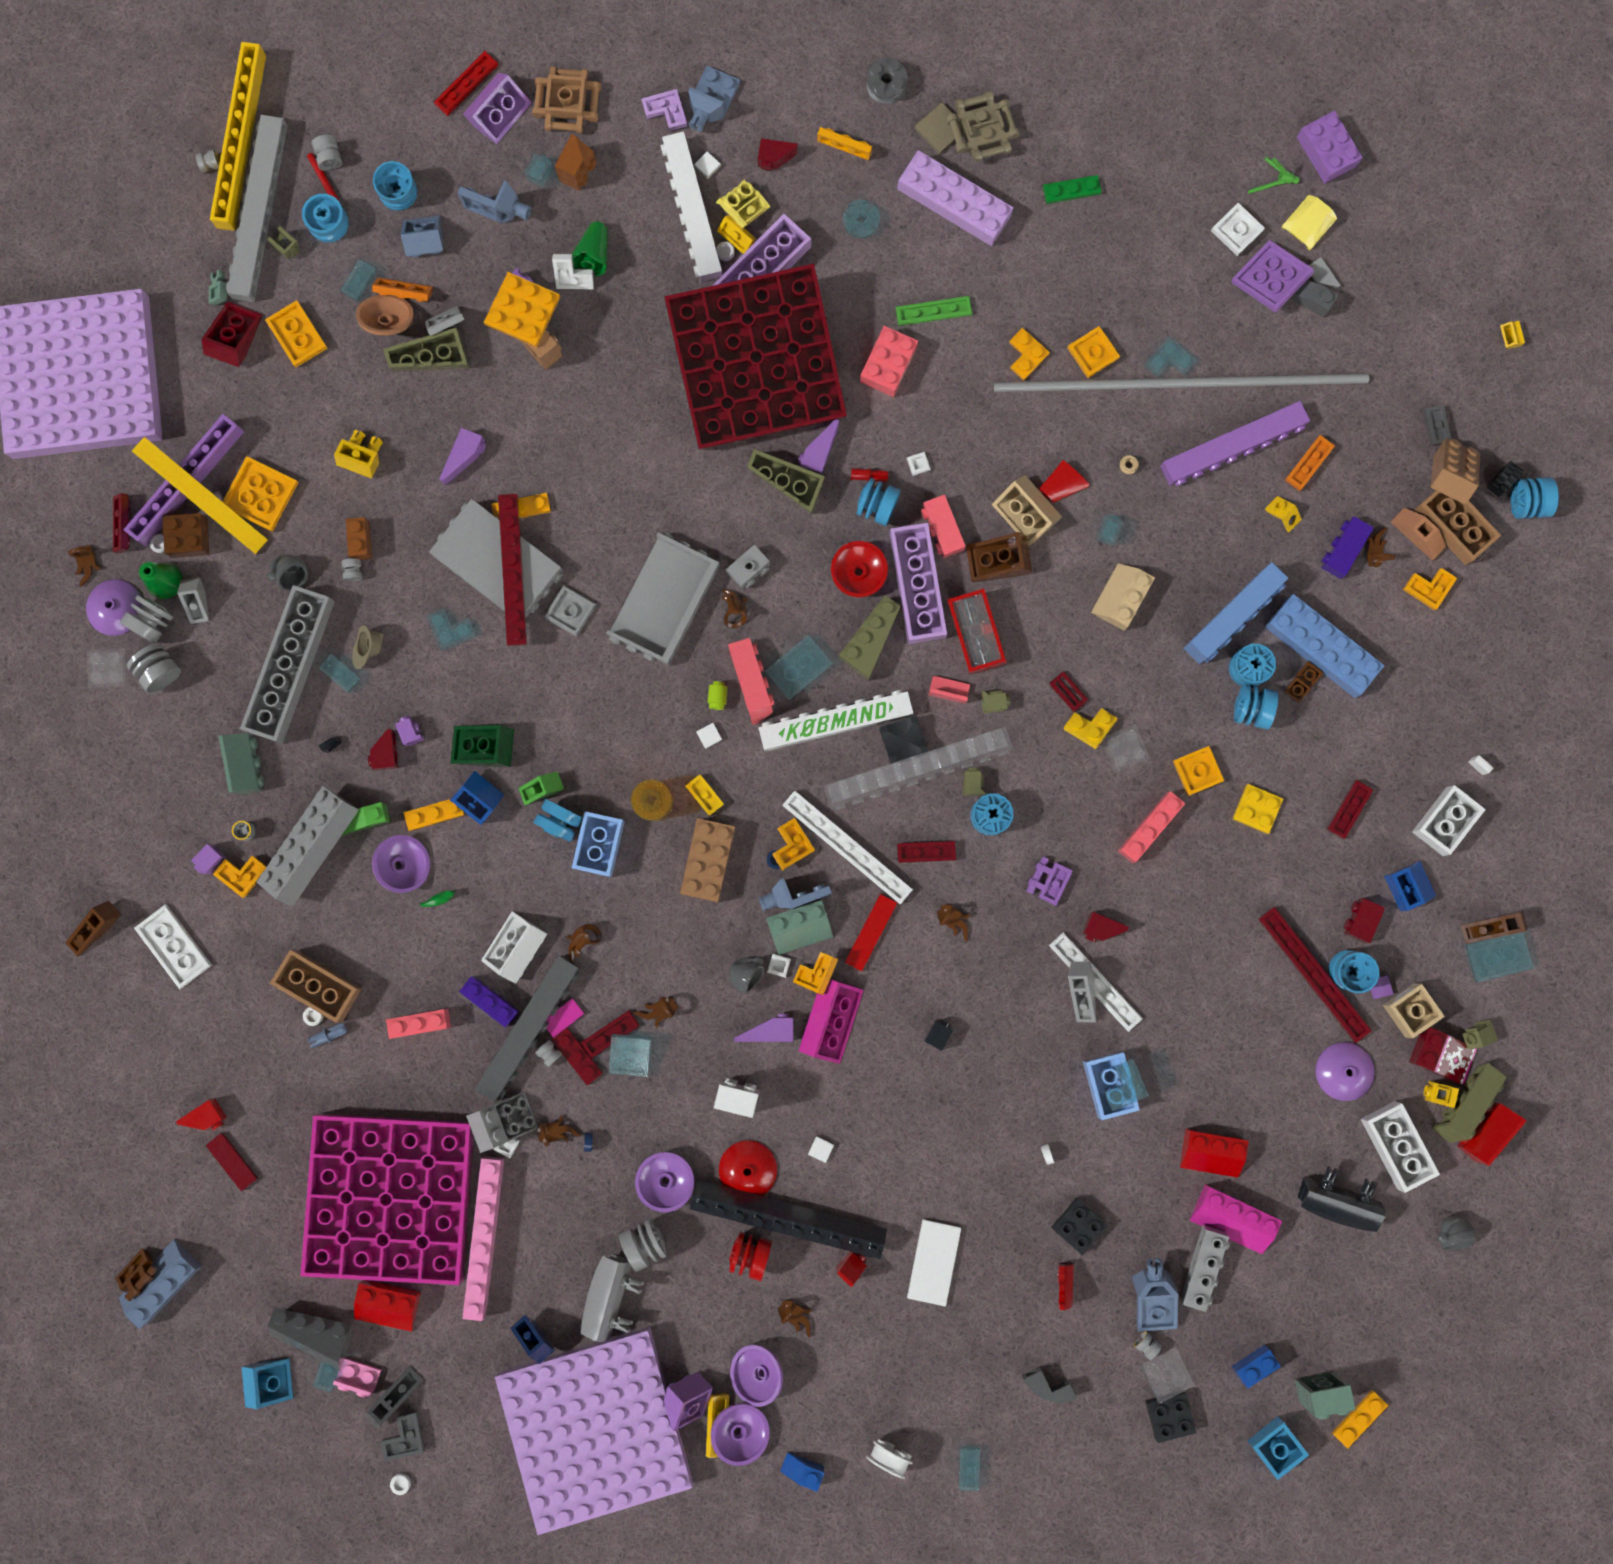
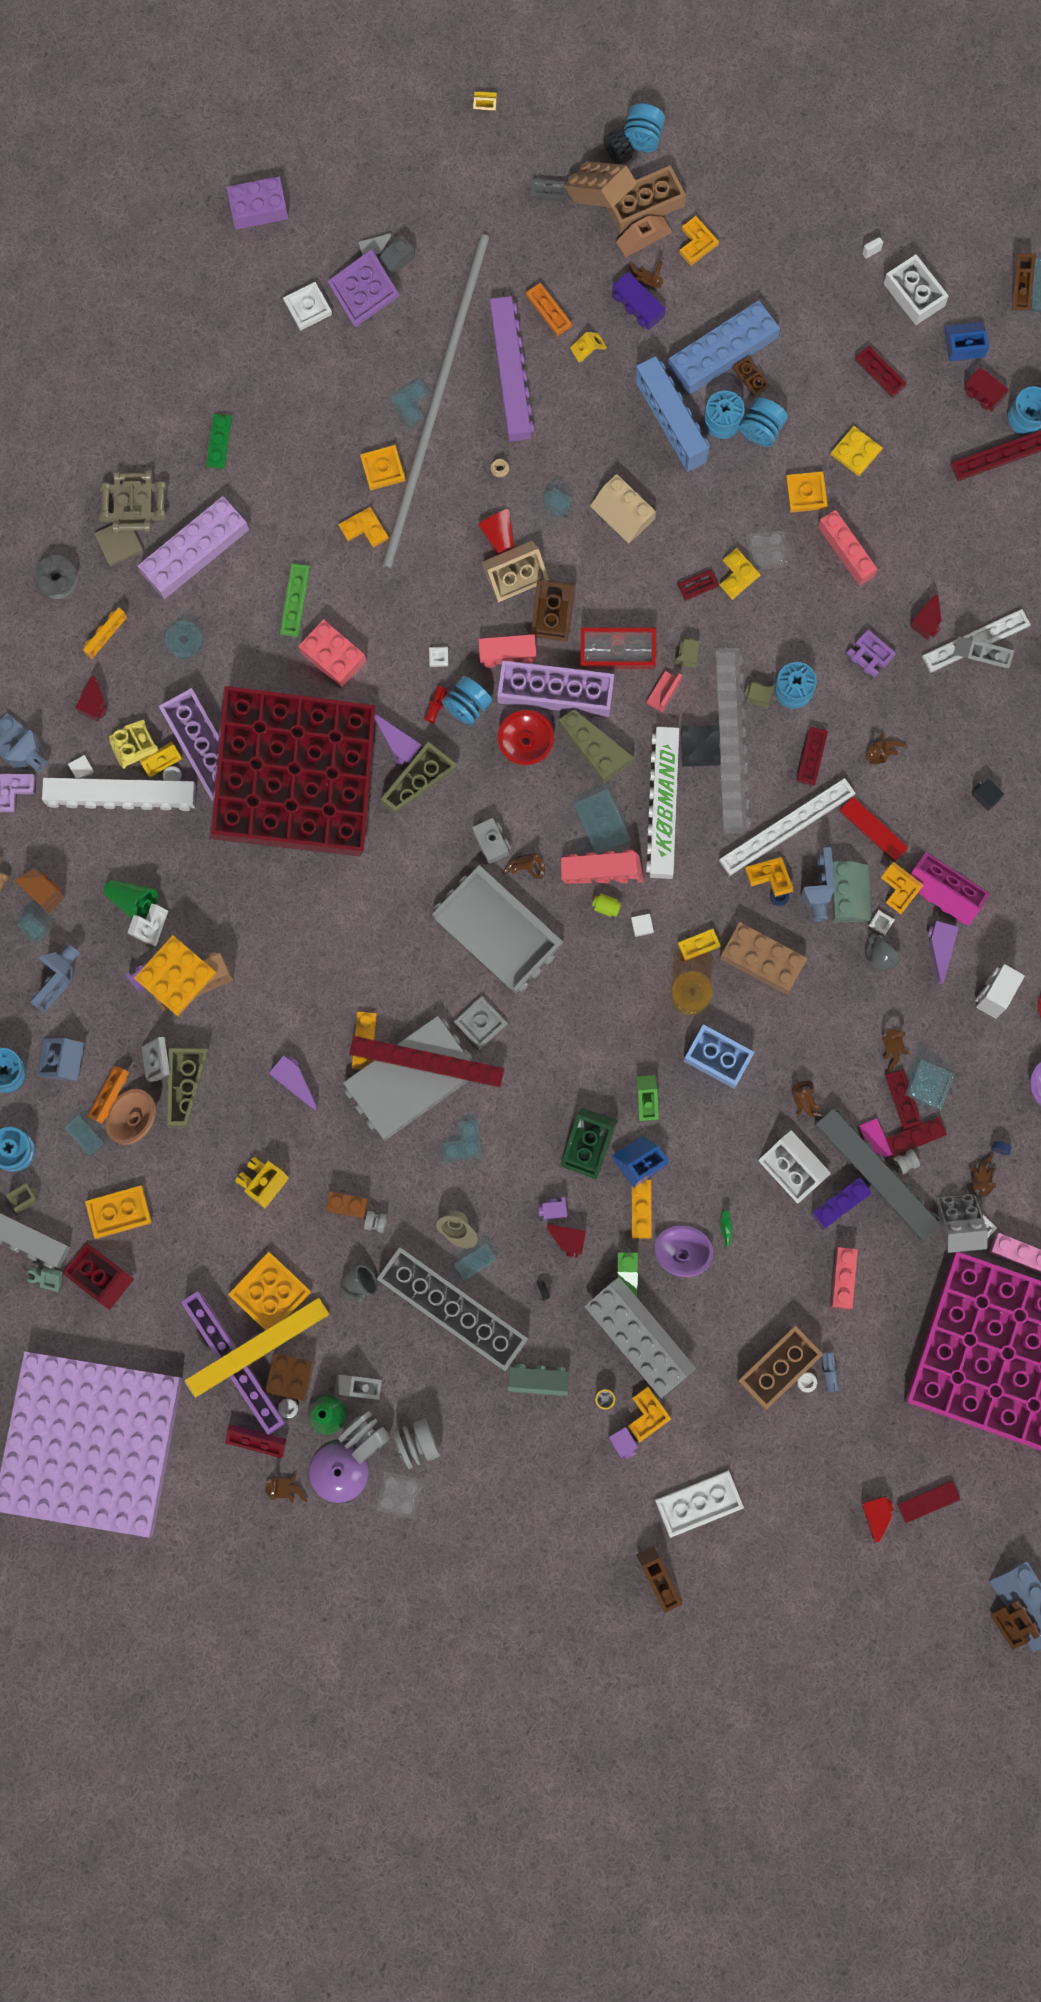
camera: 70 degrees left, 5 degrees down
(557, 821) = (687, 1089): dark azure wheel -> none
(1284, 176) = (271, 251): bright green plant -> none
(1310, 221) = (321, 241): light yellow slope -> none

